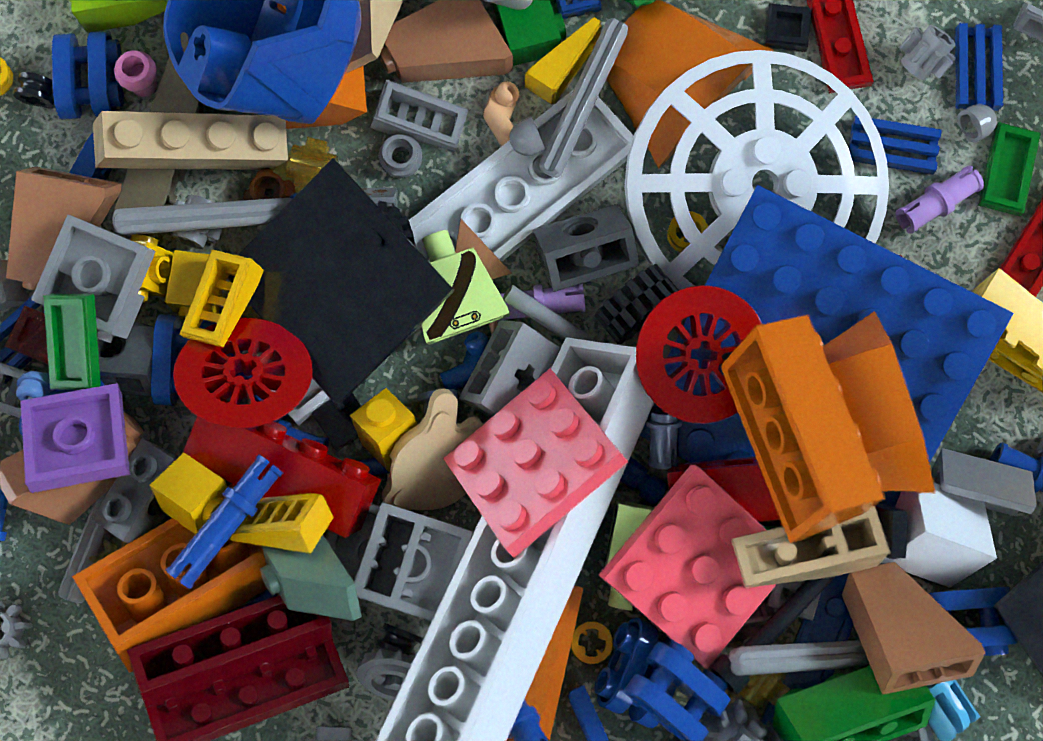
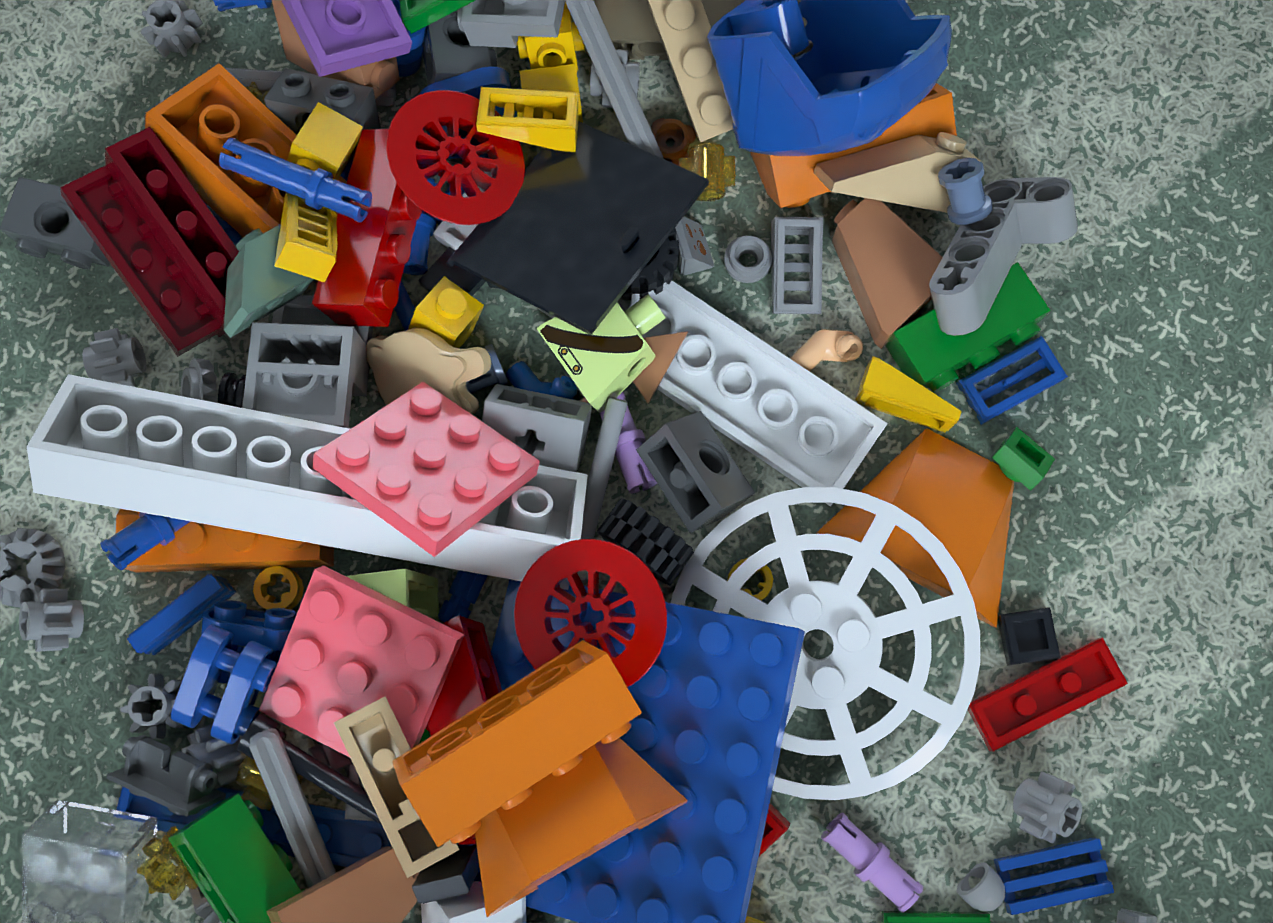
camera: 80 degrees right, 0 degrees up
(526, 138) = (800, 377): light grey hinge -> none
(583, 98) = (865, 425): light grey axle -> none
(663, 439) = (495, 607): sand blue pin -> none
(928, 134) = (929, 838): blue tile -> none

